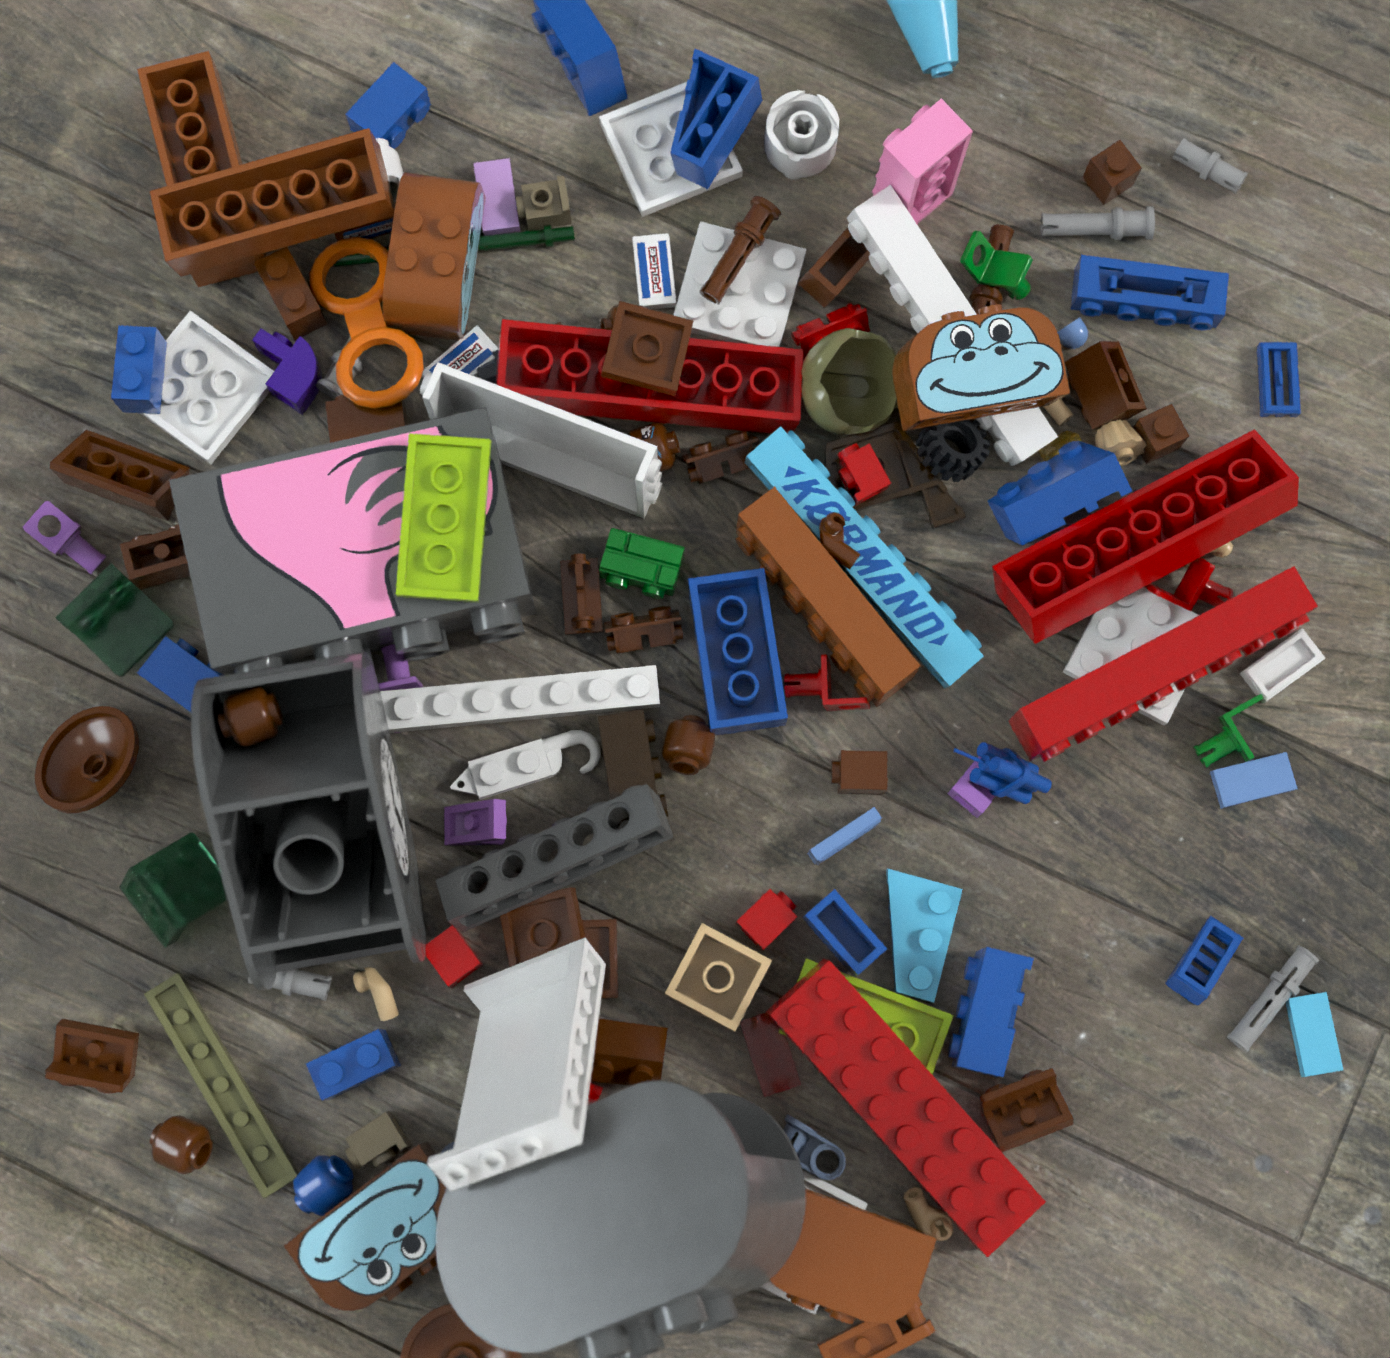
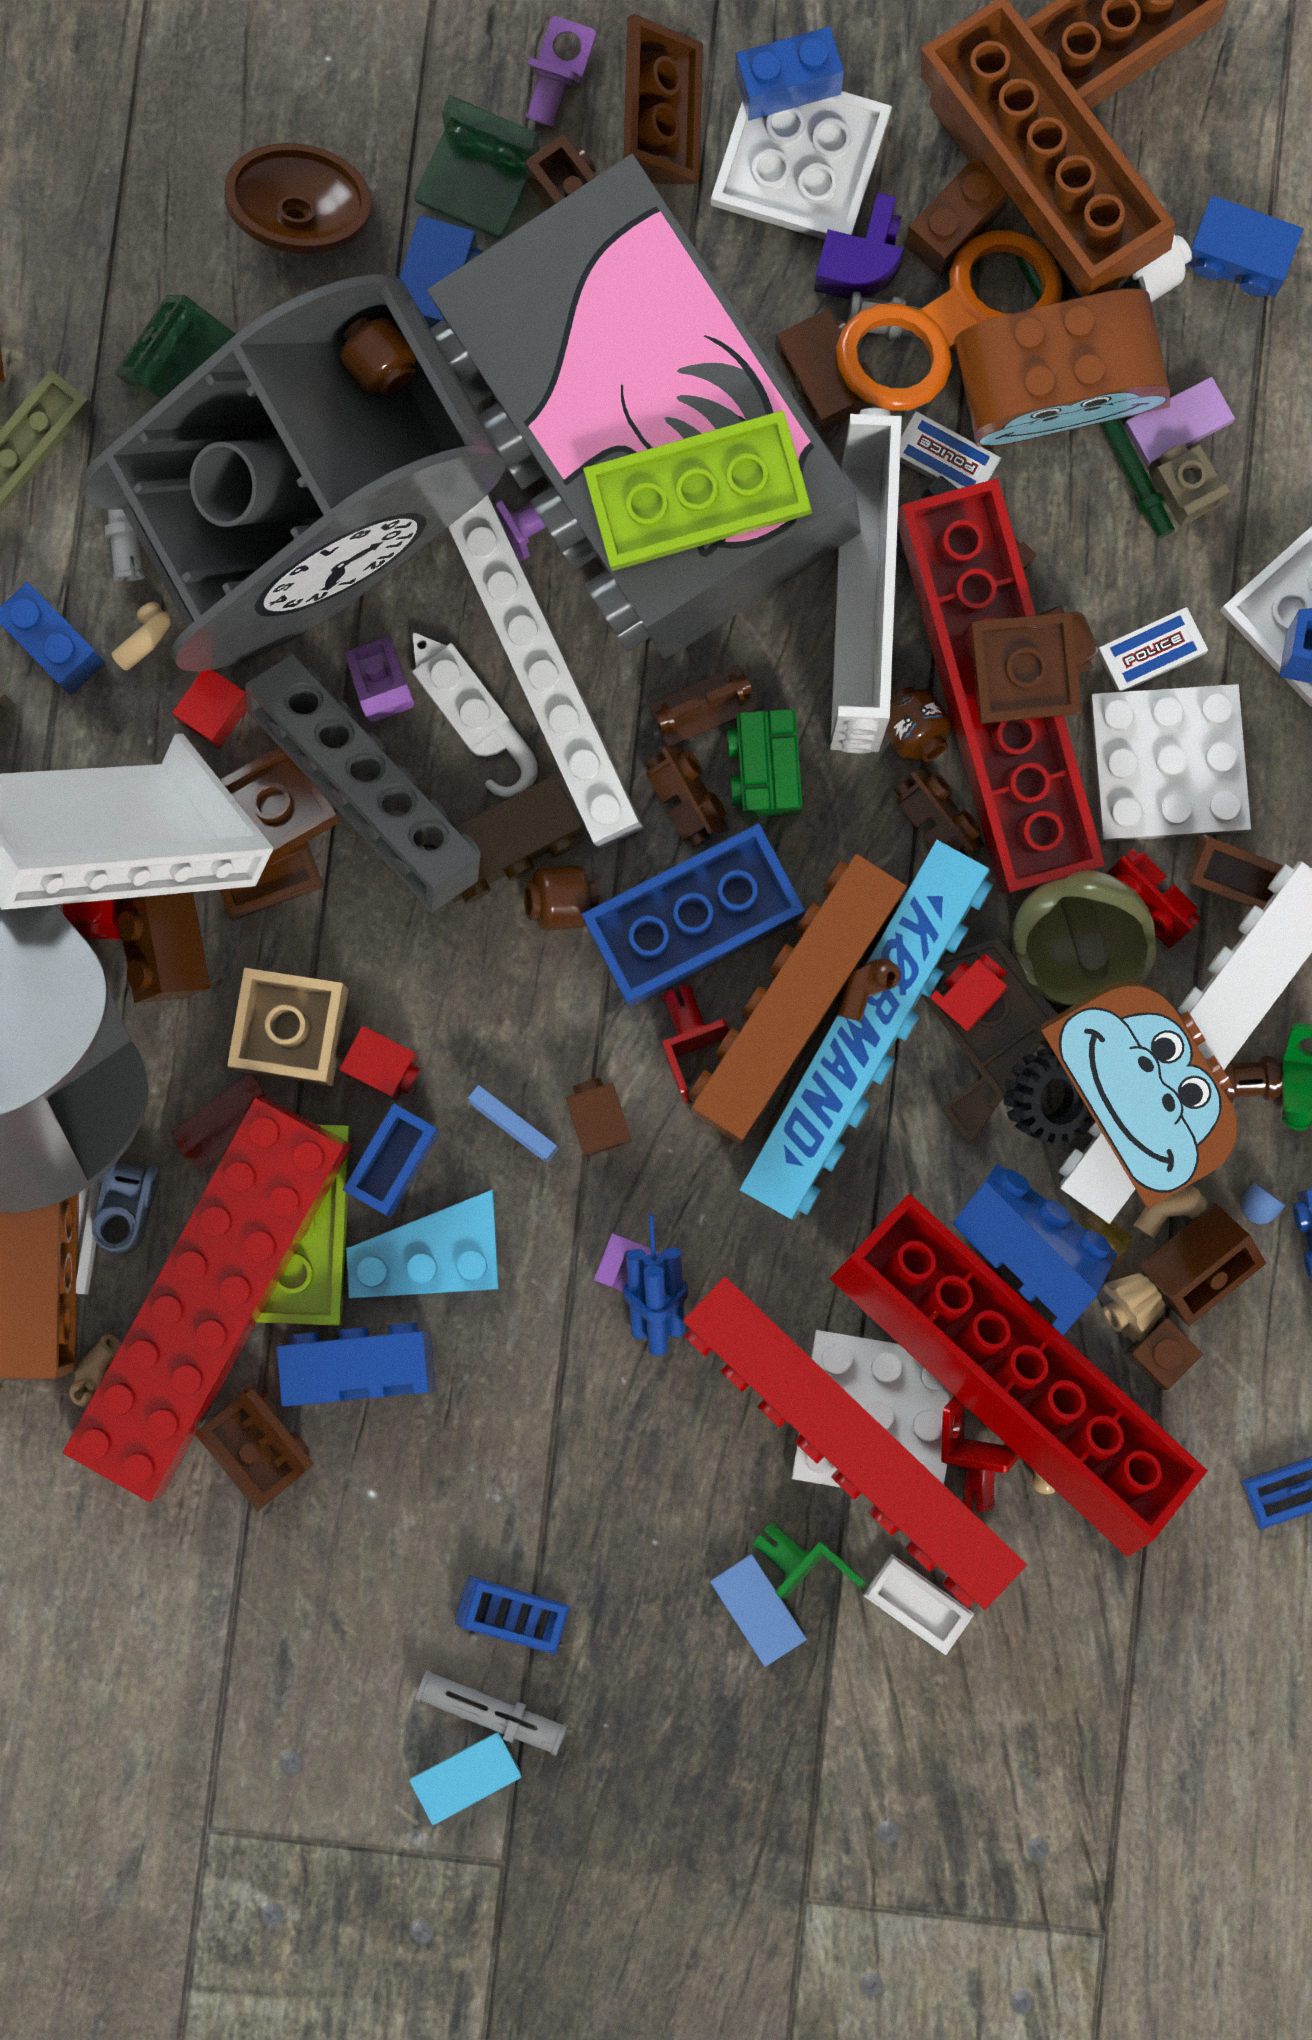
camera: 80 degrees right, 5 degrees up
(748, 235) = (1234, 747): reddish brown pin -> none

